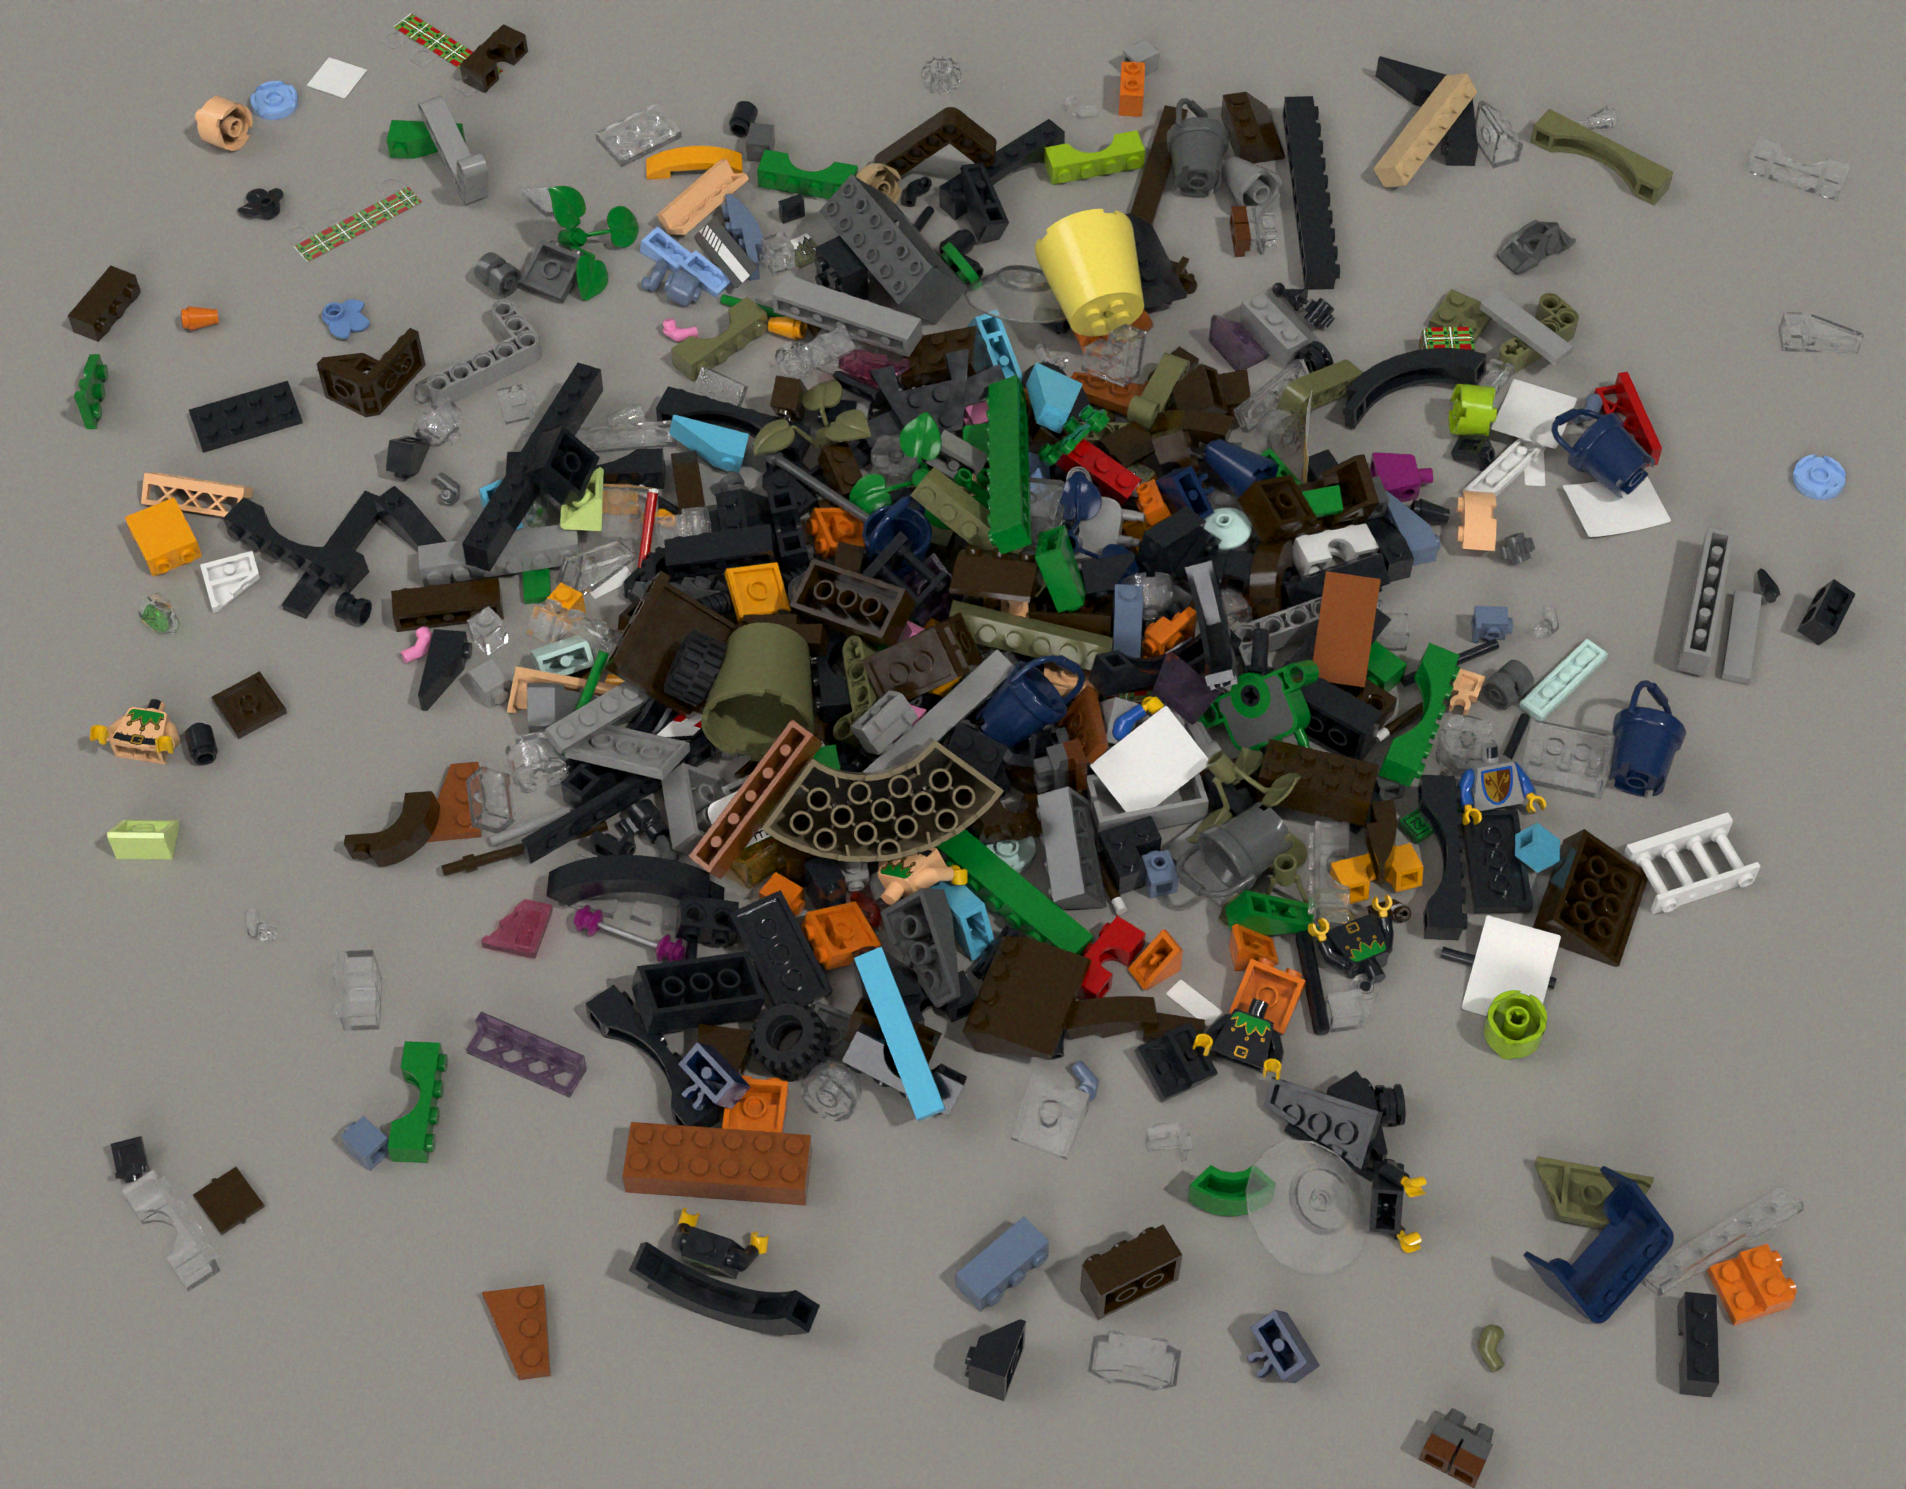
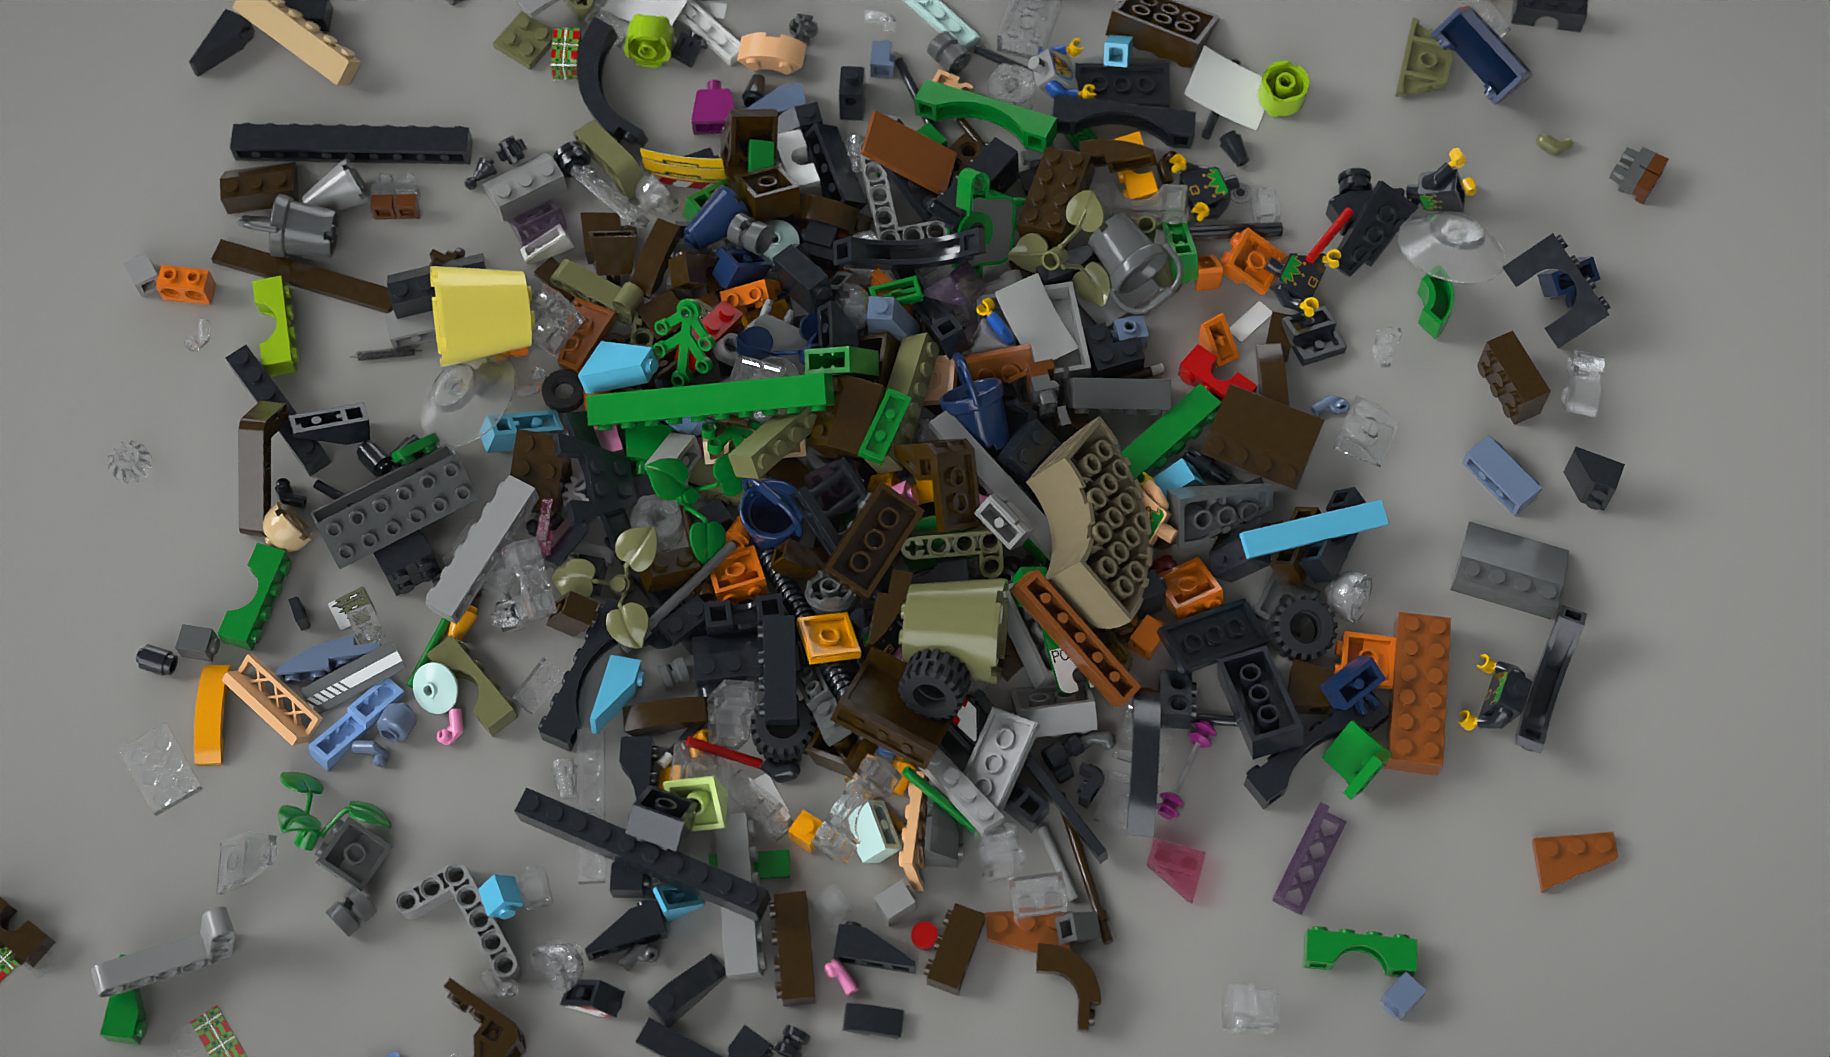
camera: 85 degrees left, 10 degrees up
(372, 674) = (873, 1019): none -> black slope
(439, 735) = (954, 948): none -> dark brown brick
(453, 836) = (1077, 928): none -> dark grey brick
(458, 713) = (924, 935): none -> red tile
(469, 474) = (637, 926): none -> black slope
(502, 372) = (501, 896): none -> medium azure brick
(633, 1102) = (1356, 758): none -> green bracket
(715, 310) = (443, 685): none -> light aqua dish
(880, 1271) = (1510, 570): none -> dark grey slope
(982, 602) = (884, 426): none -> green plate
(1170, 642) = (904, 296): none -> green tile
(1211, 353) = (547, 245): none -> white slope
(1220, 492) = (749, 233): none -> dark grey wheel
(1240, 1351) = (1587, 308): none -> black arch
(1304, 1065) = (1329, 235): none -> red bar
(1426, 979) = (1234, 147): none -> black cone
(1437, 594) = (852, 85): none -> black torso

